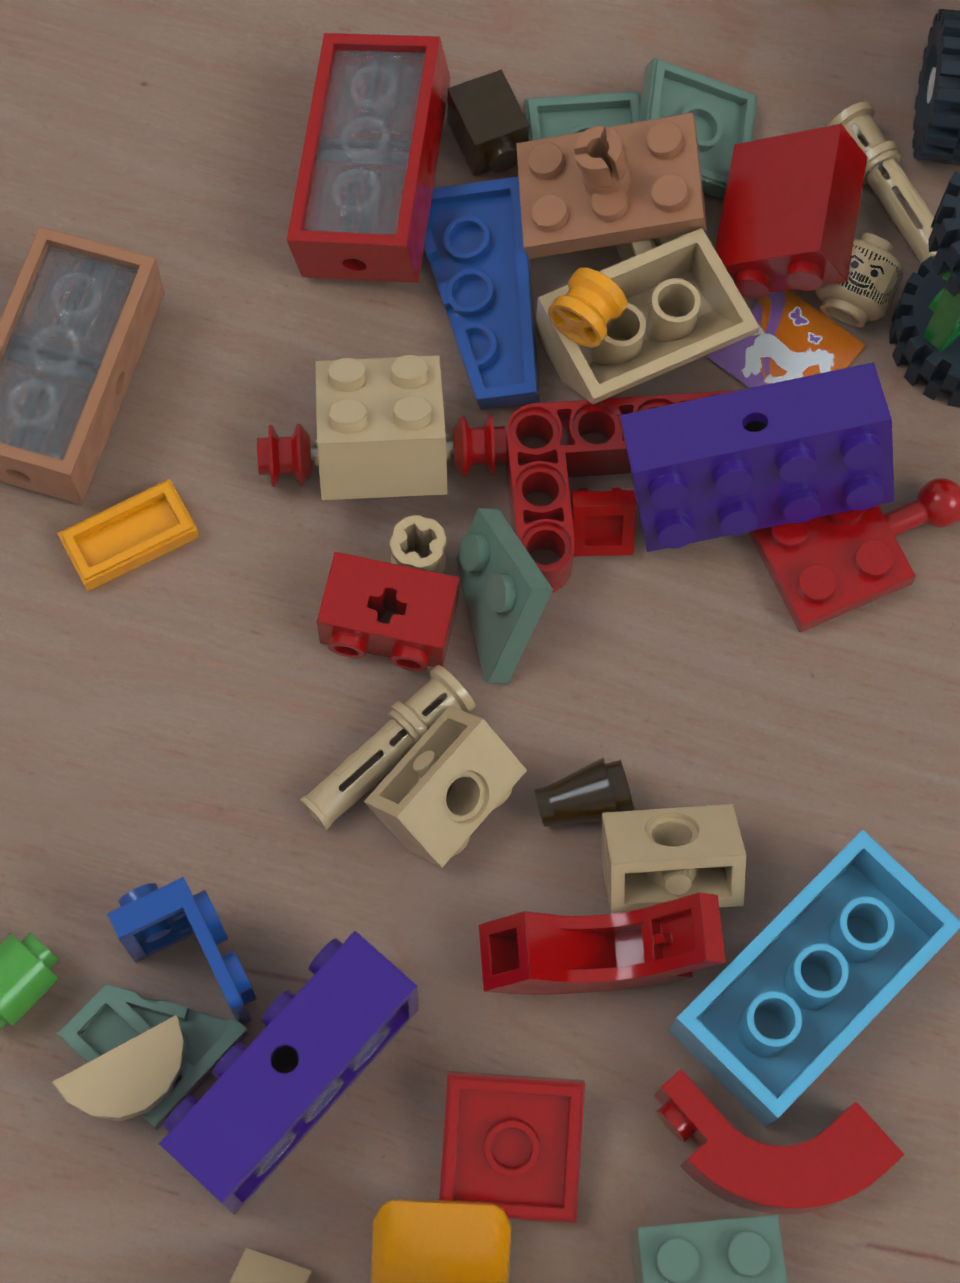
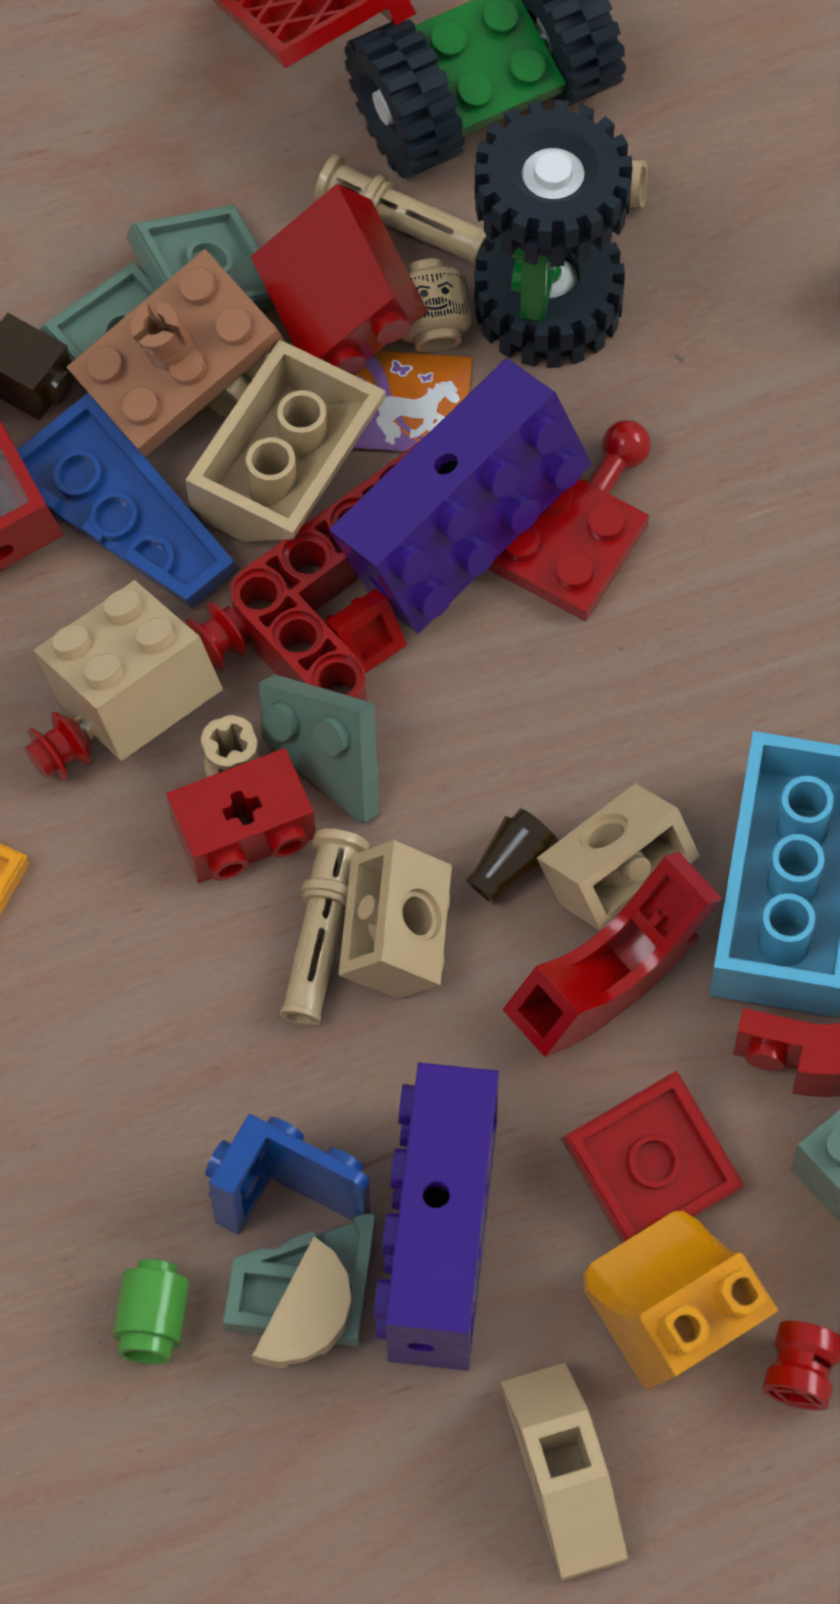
camera: 30 degrees left, 5 degrees down
(587, 307) = (238, 460): light orange wheel -> none

